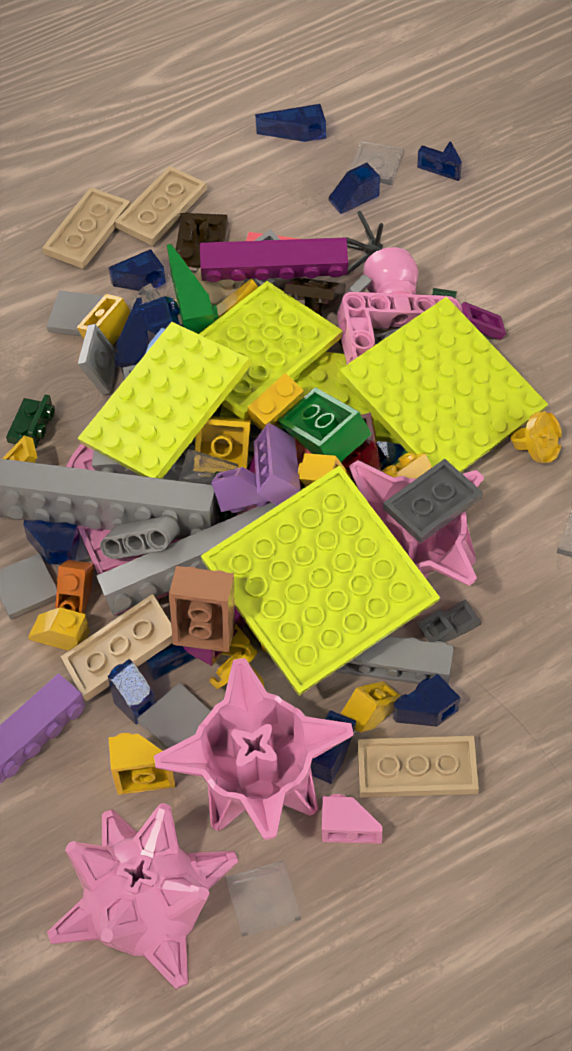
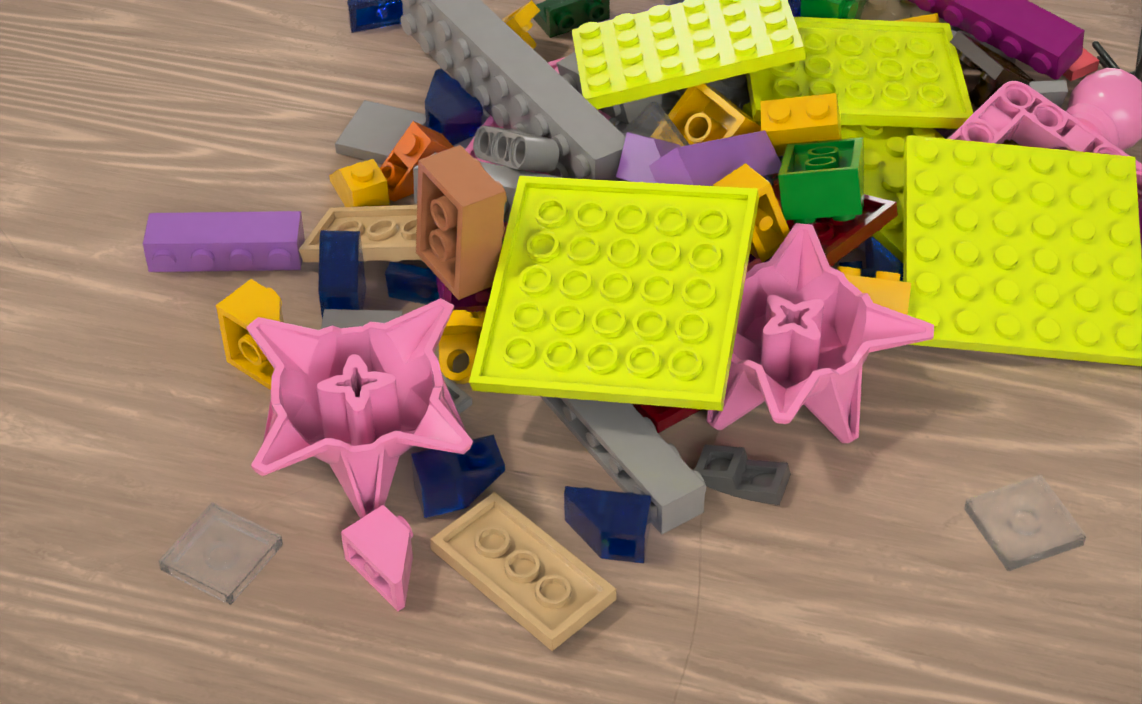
camera: 45 degrees right, 10 degrees down
(141, 891) = (126, 448): bright pink piece -> none
(370, 705) = (543, 468): yellow slope -> none
(432, 500) = (836, 309): dark grey plate -> none
(539, 437) = (1087, 376): yellow tile -> none

